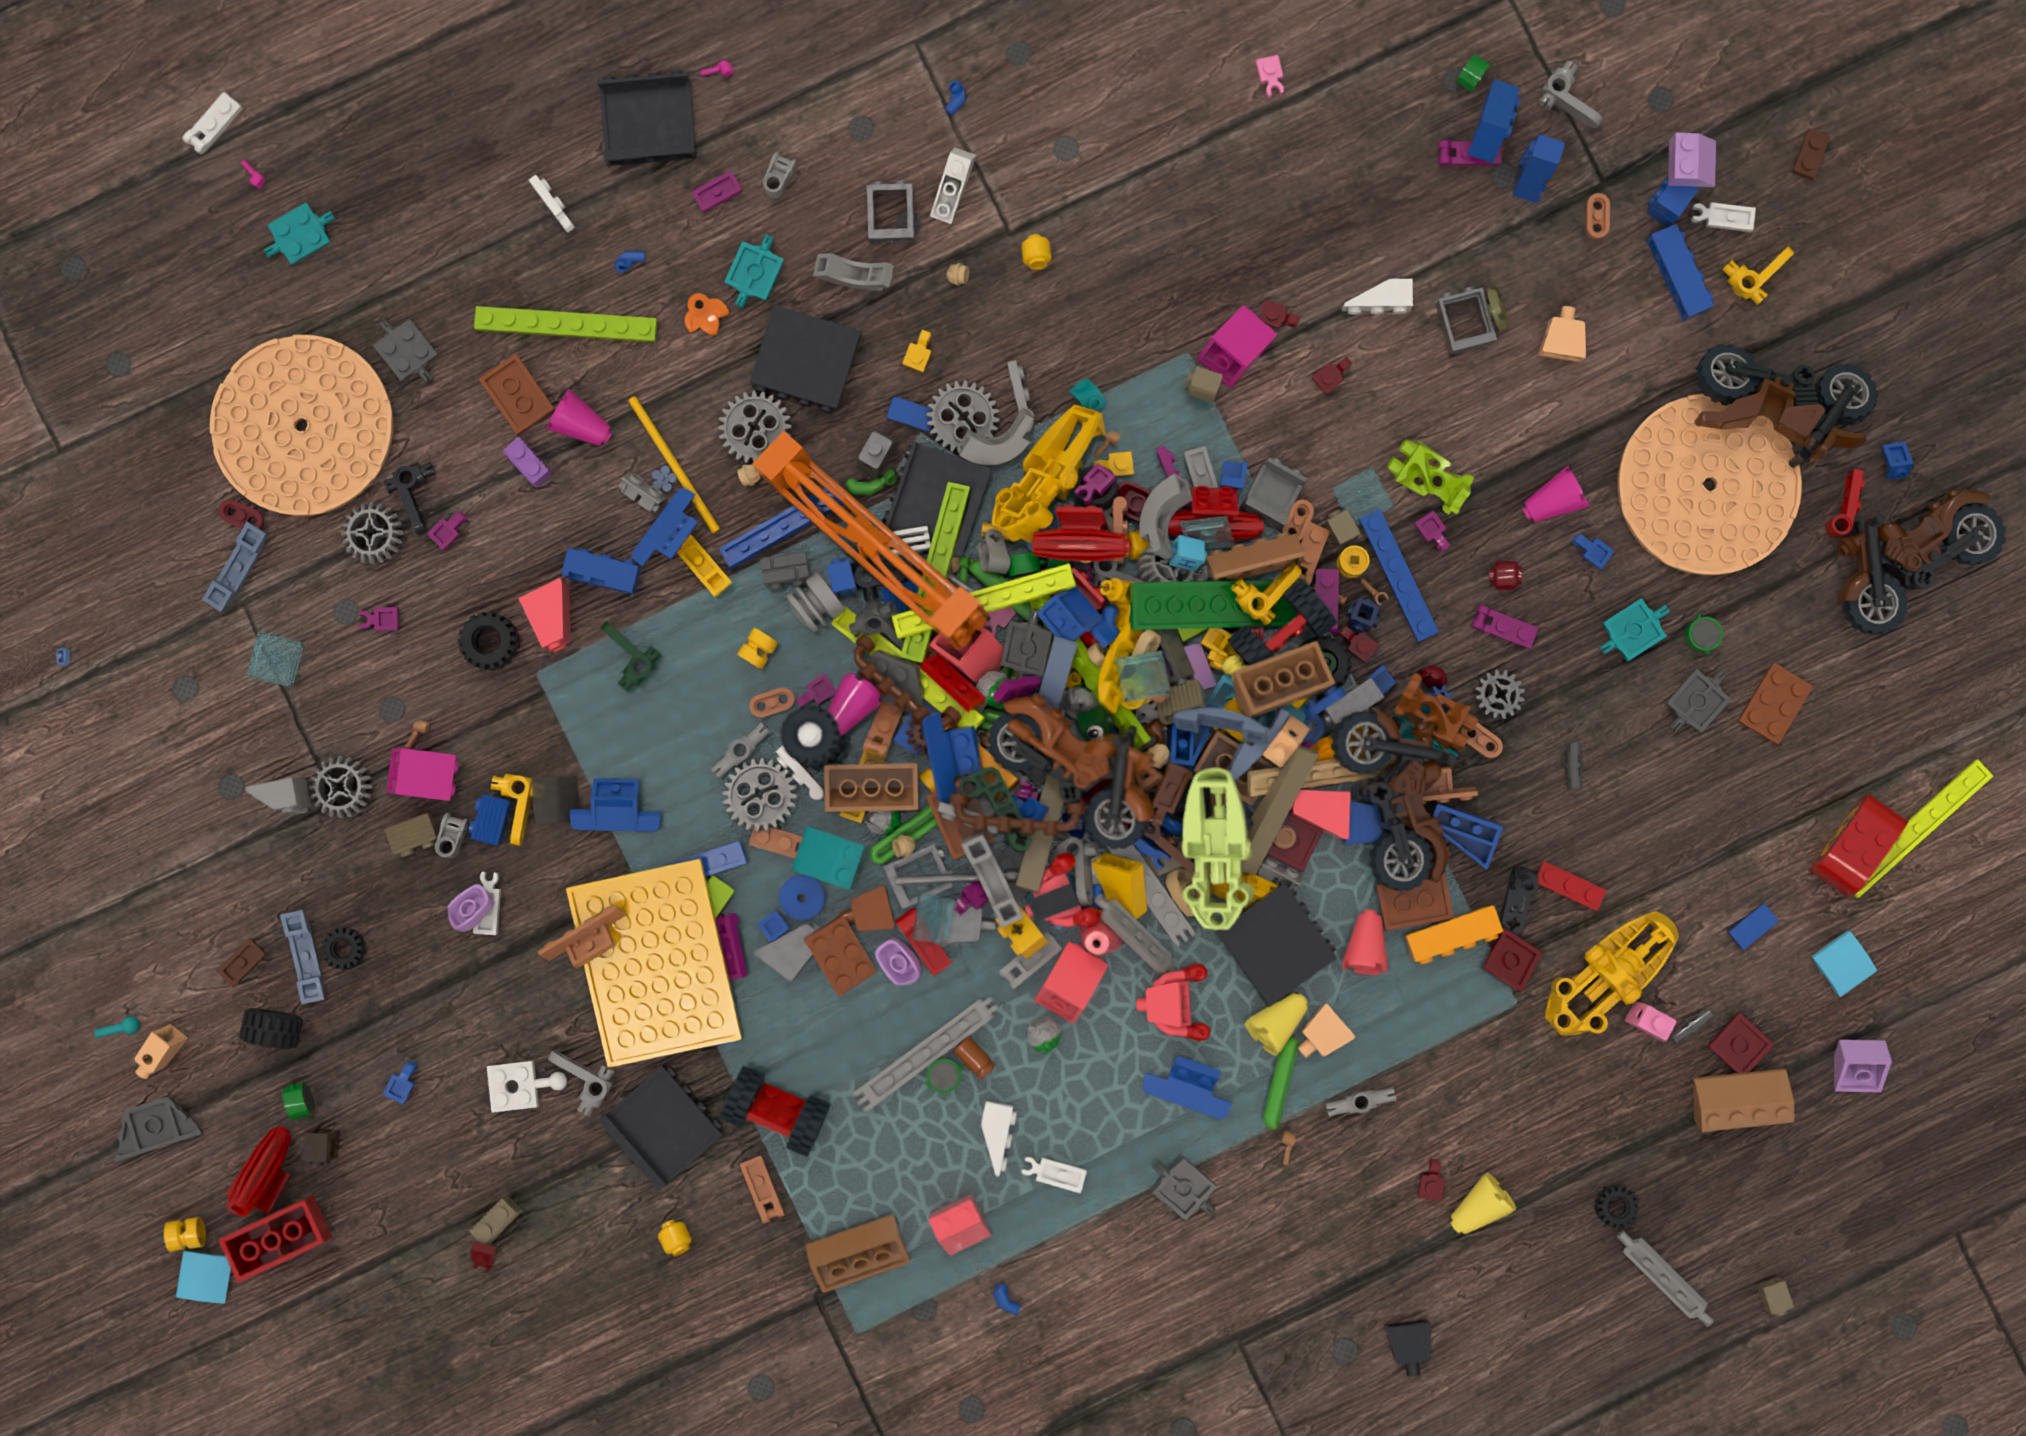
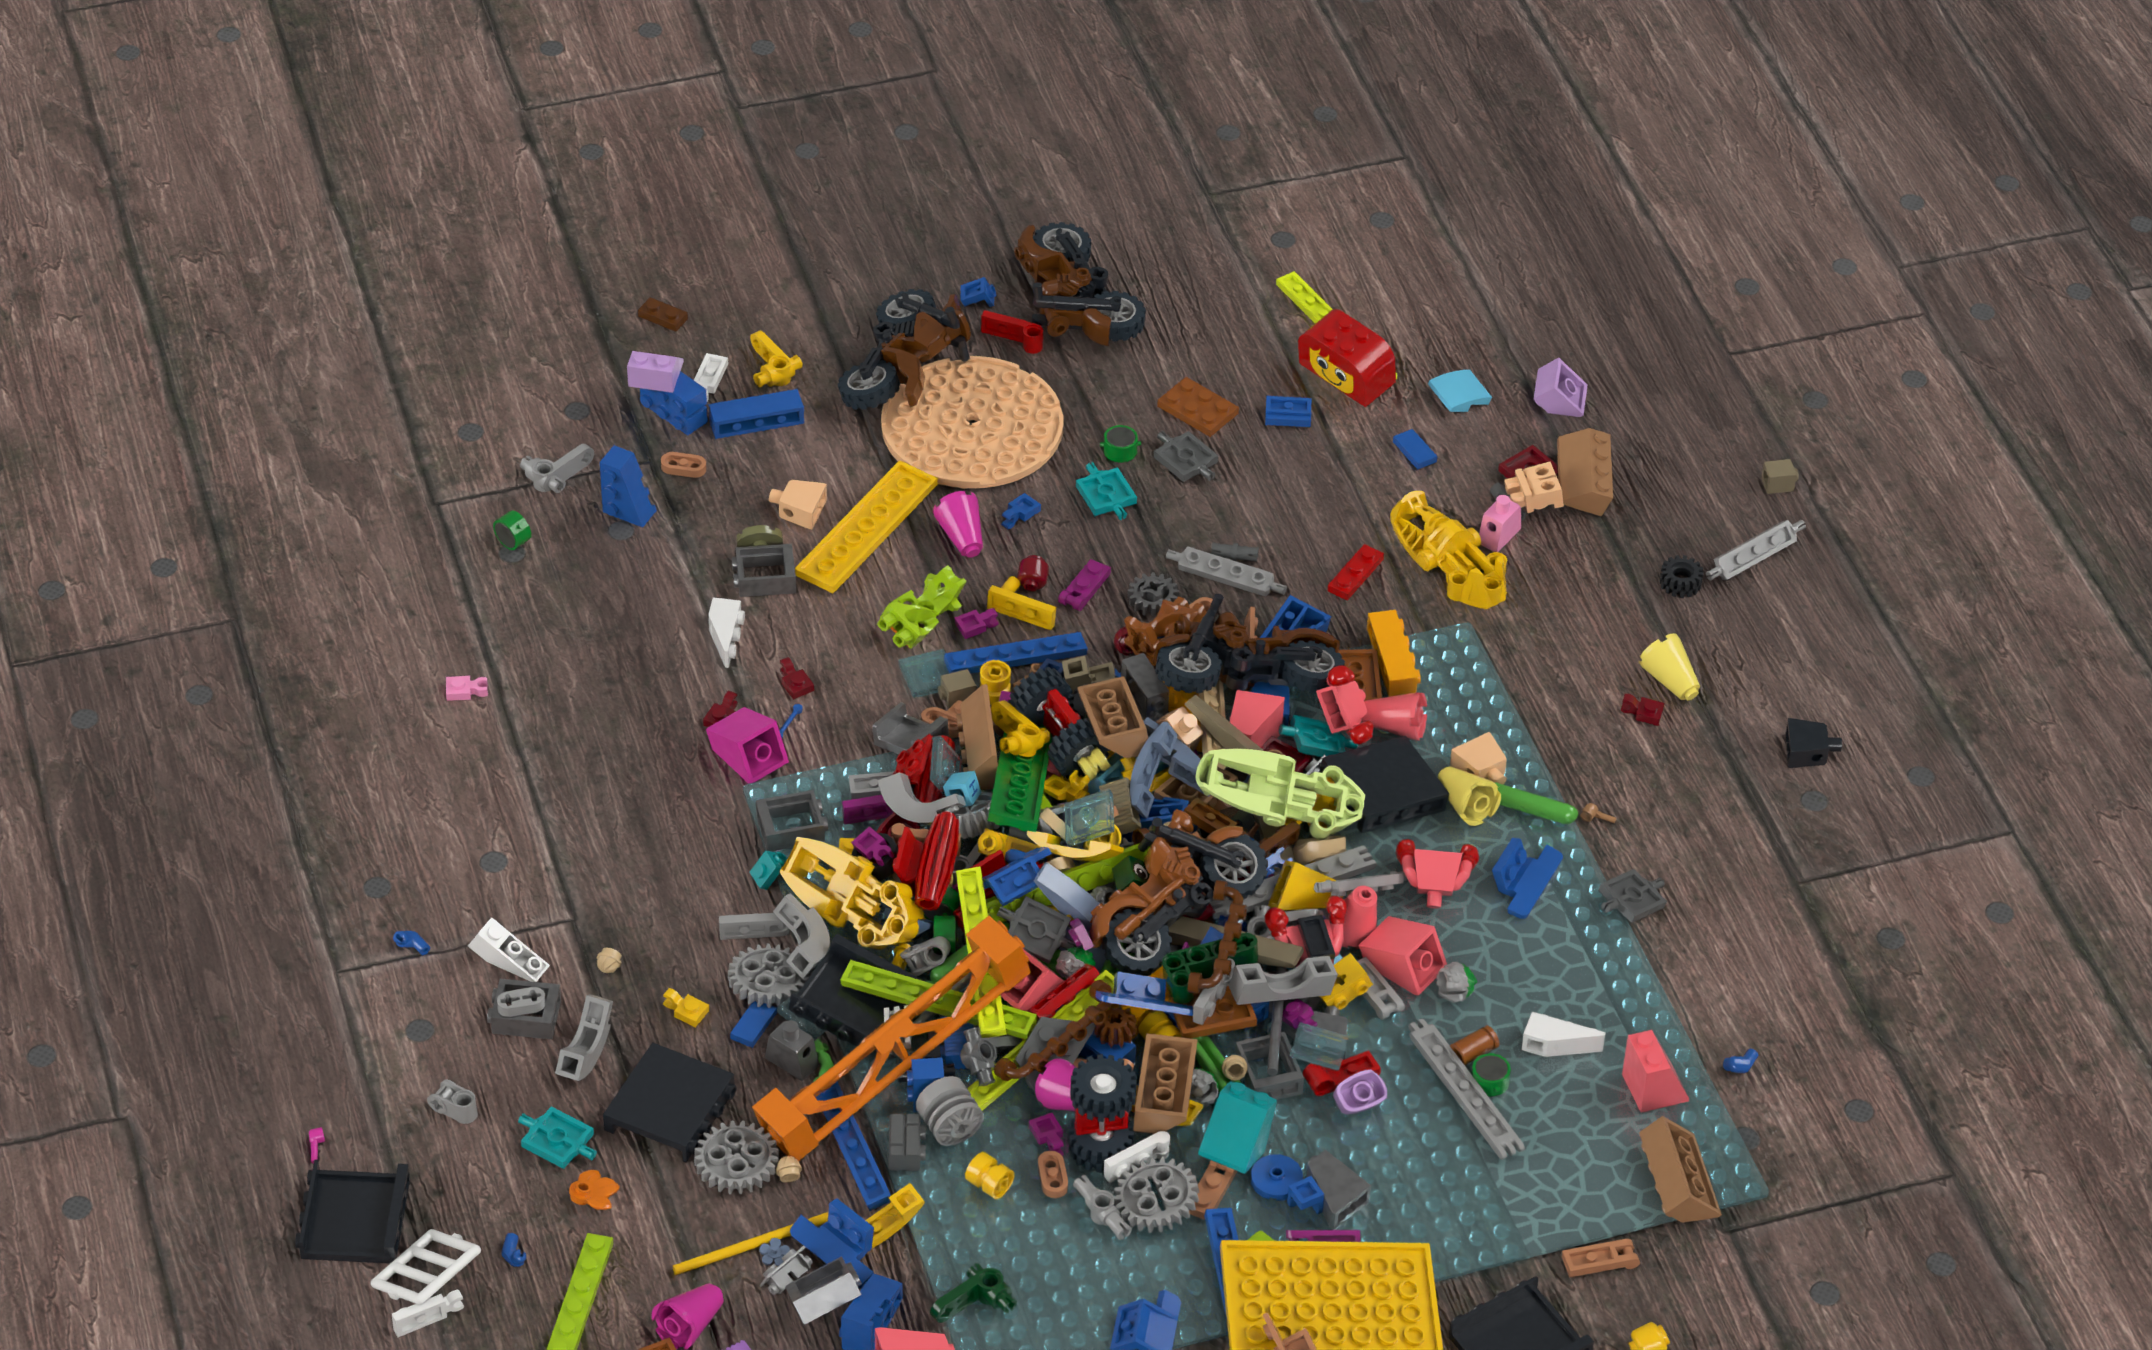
camera: 85 degrees left, 40 degrees down
(589, 215) = (417, 1250): none -> white bar
(603, 508) = (824, 1289): none -> window
(717, 191) = (456, 1159): magenta plate -> none
(775, 1110) = (1497, 1234): black plate -> none
(840, 955) = (1347, 1141): dark orange plate -> none
(871, 911) = (1300, 1113): dark orange torso -> none
(887, 205) = (521, 1001): none -> light grey beam
(1036, 252) = (602, 891): yellow head -> none
(1057, 1174) = (1607, 994): white plate -> none
(1135, 381) = (789, 805): none -> flat silver window
(1203, 384) = (784, 761): dark tan brick -> none
(1233, 475) = (883, 757): blue panel -> none
(1297, 384) = (797, 709): none -> blue hinge
(1316, 706) = (1141, 700): blue plate -> none
(1325, 875) = (1315, 737): none -> teal plate
(1356, 895) = (1345, 705): none -> coral torso
(1361, 648) = (1079, 673): none -> dark tan brick
(1372, 1099) = (1556, 749): light grey pin -> none
(1461, 158) = (592, 549): magenta plate -> none
(1465, 552) = (1020, 607): none -> yellow piece
(1495, 120) = (567, 515): blue wedge -> none
(1511, 960) = (1427, 617): dark red plate -> none
(1517, 899) = (1348, 599): black piece -> none
(1545, 406) = (866, 526): none -> yellow plate
(1546, 760) = (1226, 571): none -> light grey plate
(1700, 1055) = (1535, 487): none -> light nougat hips
(1781, 794) = (1288, 411): none -> blue plate

